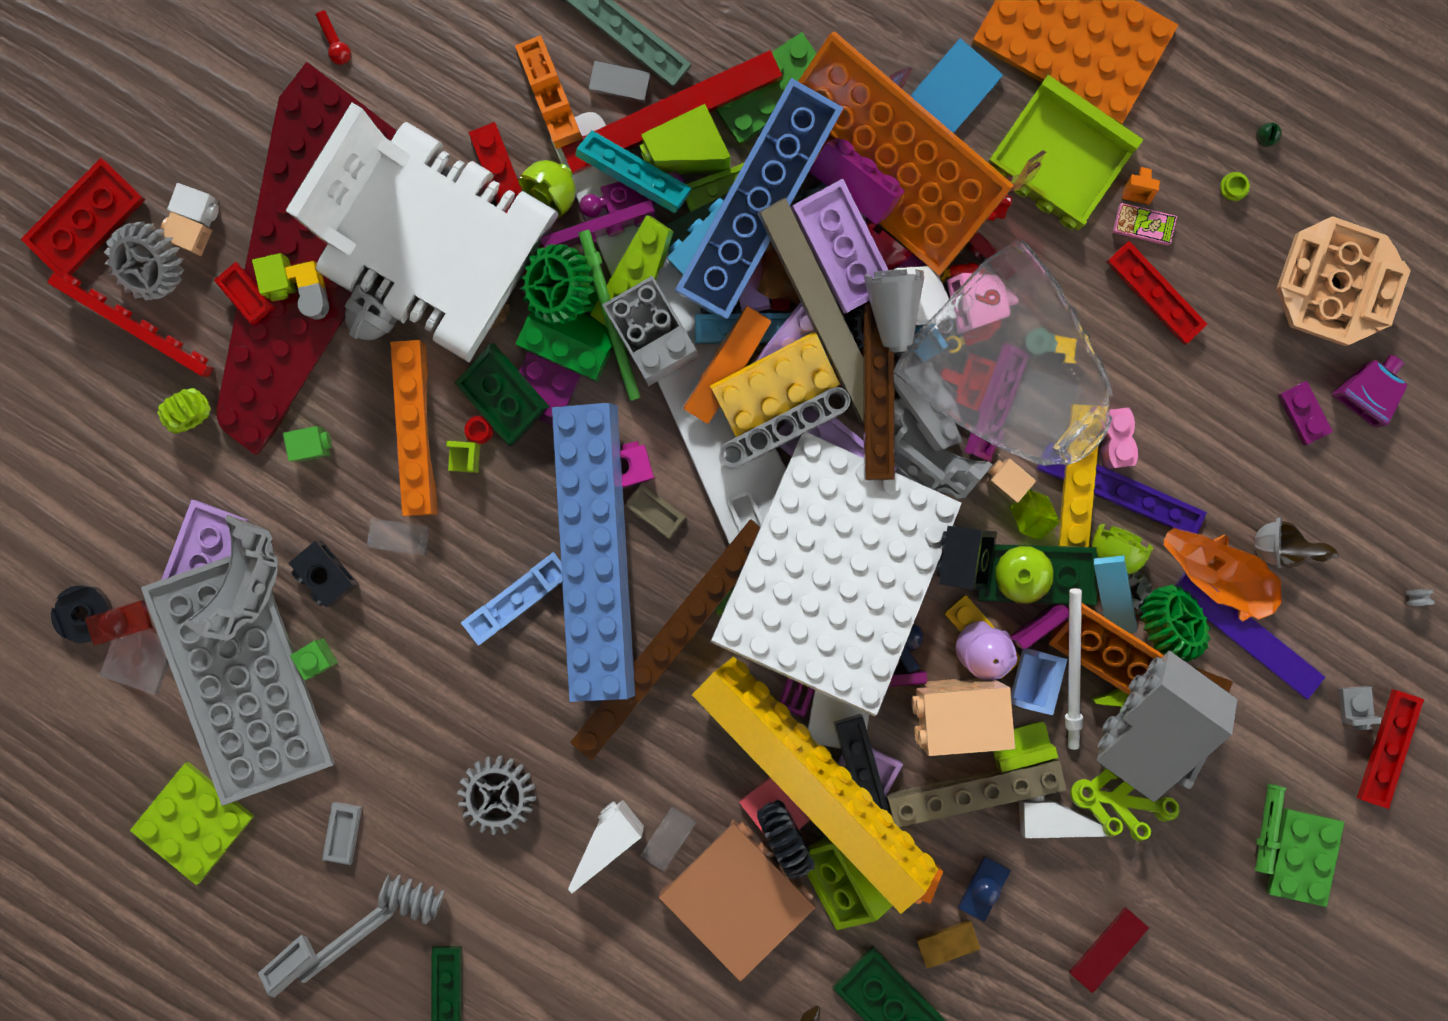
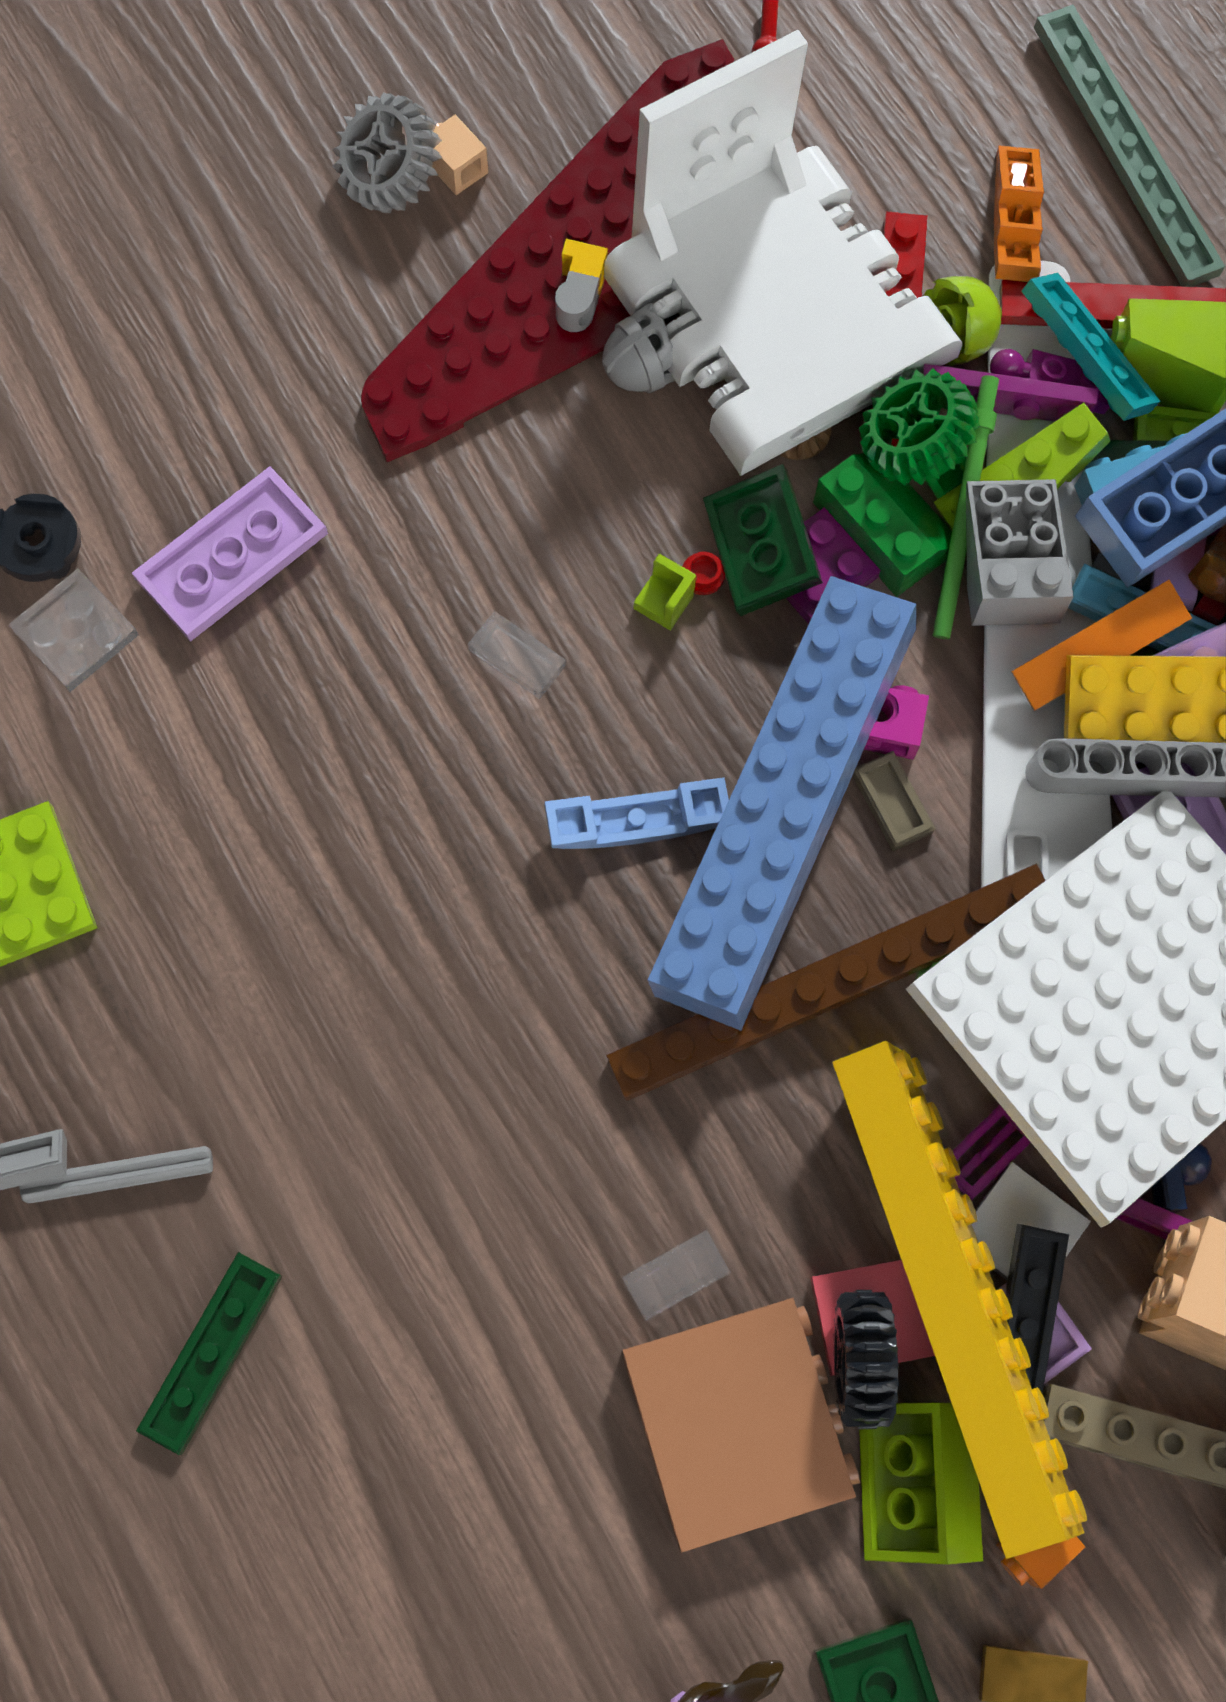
camera: 20 degrees right, 15 degrees down
(83, 218) = (329, 77): red plate -> none
(119, 622) = (78, 567): clear red tile -> none
(122, 317) = (317, 208): red plate -> none
(183, 410) = (328, 351): lime gear -> none
(194, 204) = (489, 123): white brick -> none
(238, 692) = (193, 722): light grey plate -> none
(244, 293) = (490, 253): red tile -> none
(245, 585) = (287, 594): light grey windscreen -> none
(272, 277) = (542, 247): lime brick -> none
(307, 444) = (464, 475): bright green brick -> none
(313, 659) = (310, 751): bright green brick -> none
(338, 581) = (381, 623): black brick -> none
(342, 833) = (206, 1015): light grey tile -> none
(410, 402) = (605, 546): orange arch -> none
(410, 899) = (250, 1158): light grey piece -> none
(480, 814) = (480, 1065): light grey gear -> none
(614, 834) = (594, 1219): white slope -> none
(619, 81) = (1115, 248): light grey tile -> none
(984, 888) = (1131, 1619): dark blue tile -> none

